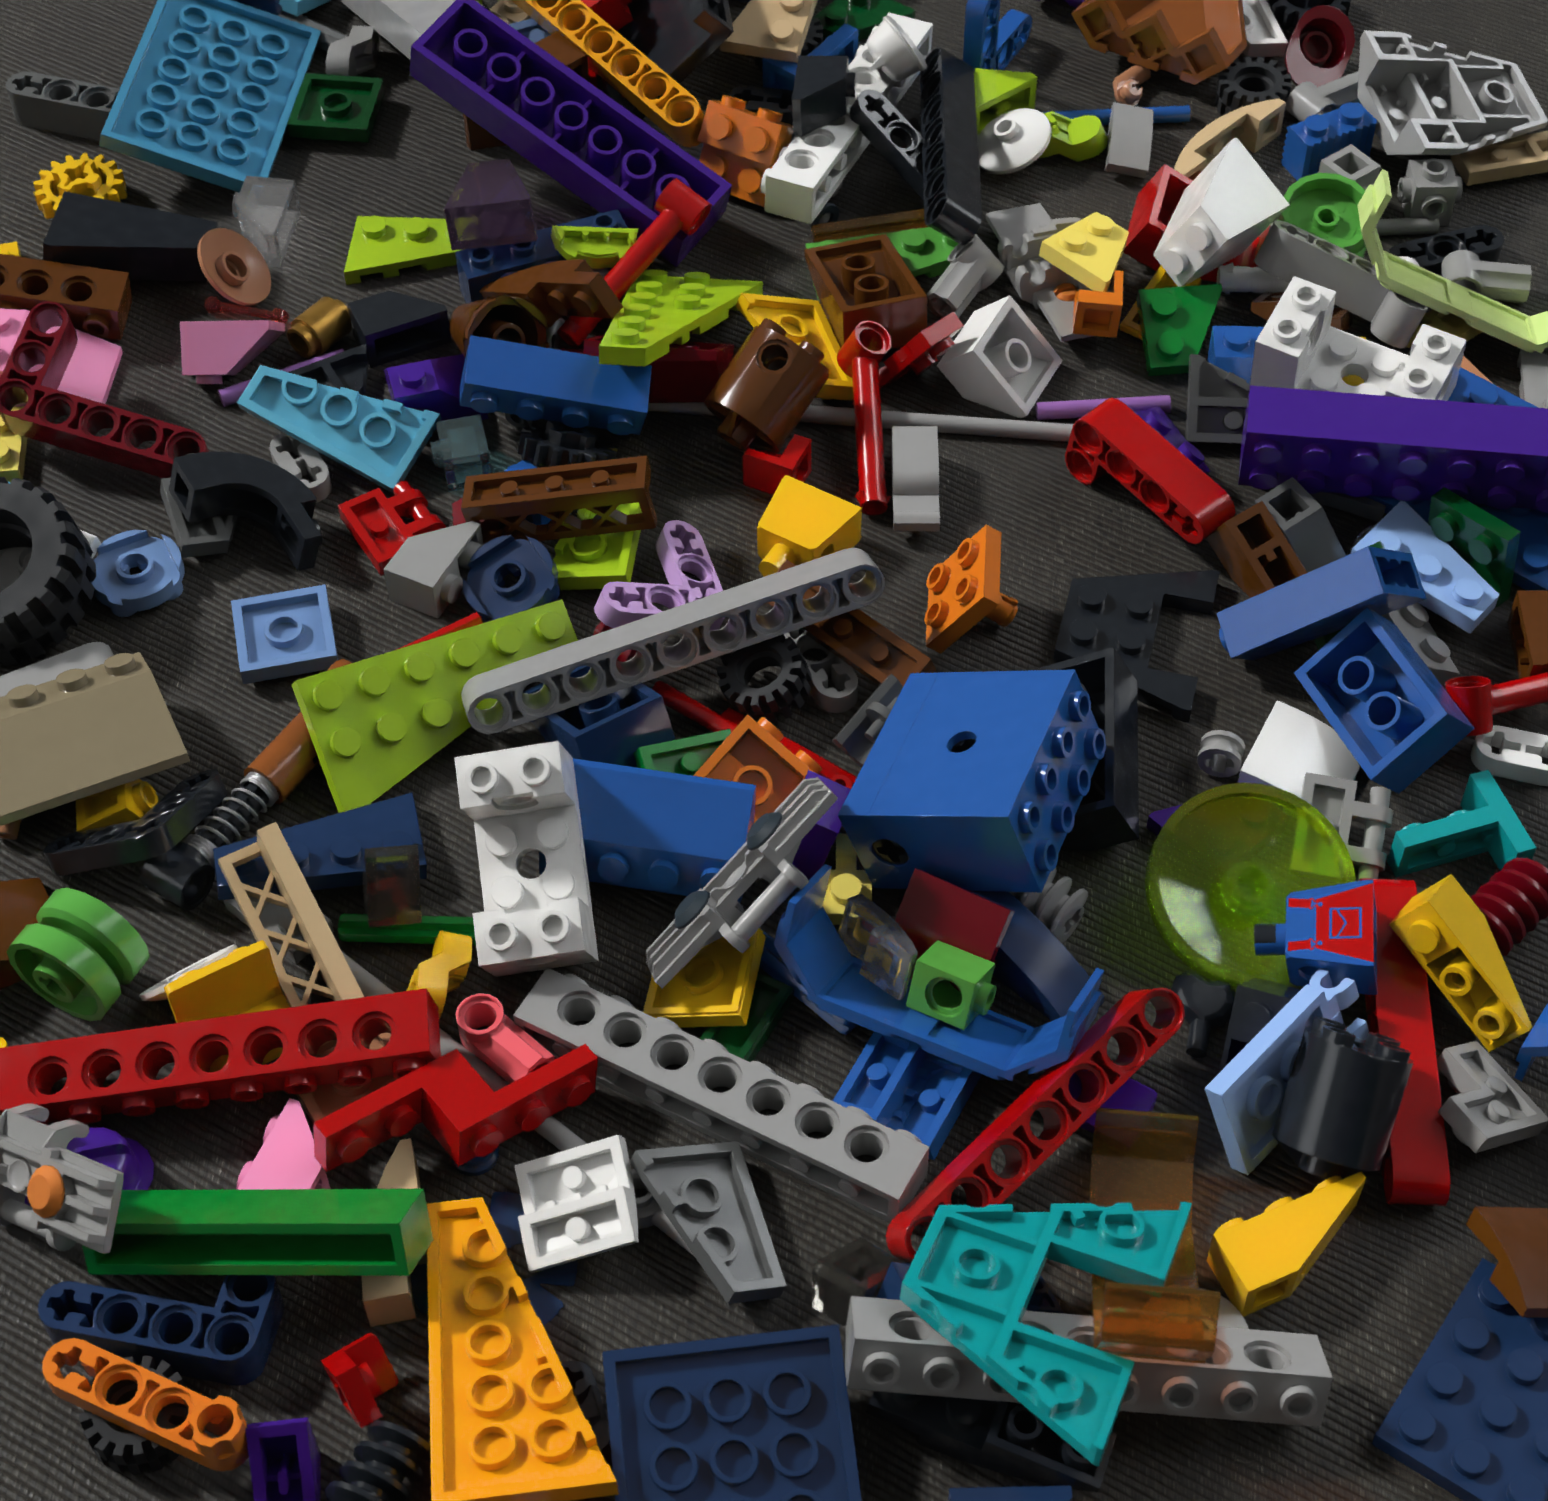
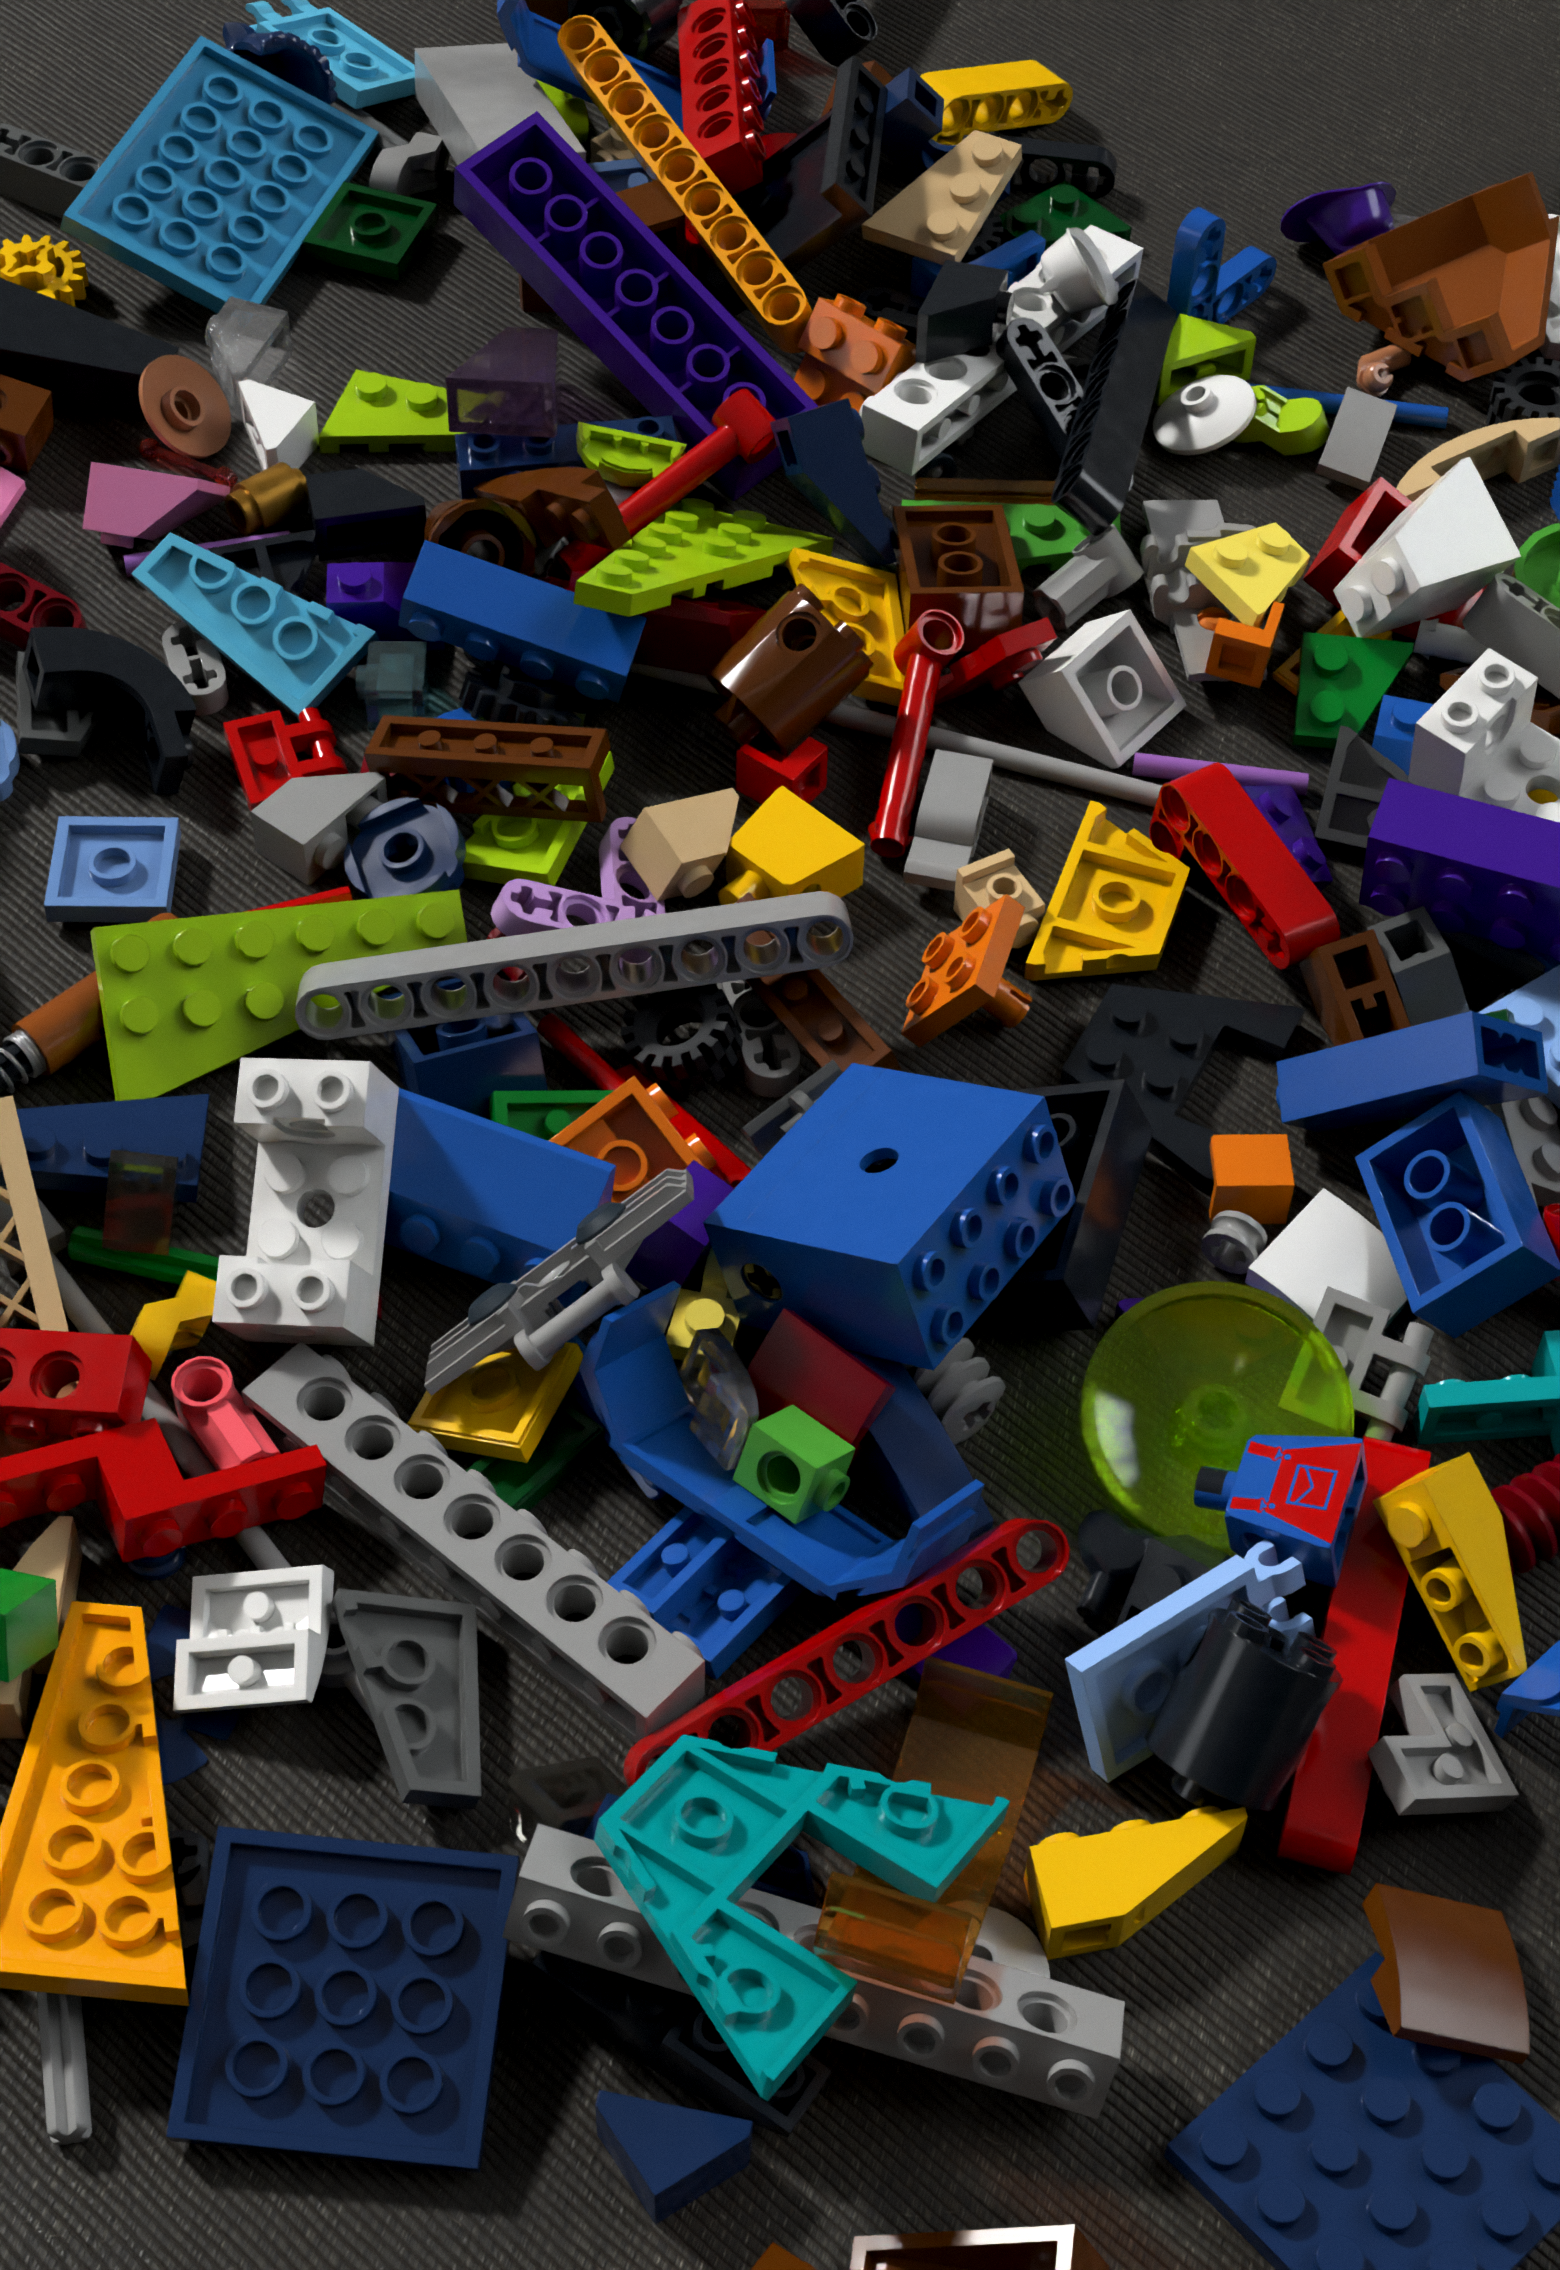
camera: 10 degrees right, 0 degrees up
(309, 268) = (278, 424): none -> white slope
(722, 532) = (681, 843): none -> tan slope
(755, 229) = (829, 467): none -> dark blue slope
(962, 521) = (988, 881): none -> tan brick
(1052, 519) = (1109, 904): none -> yellow wing
(1221, 702) = (1252, 1176): none -> orange panel

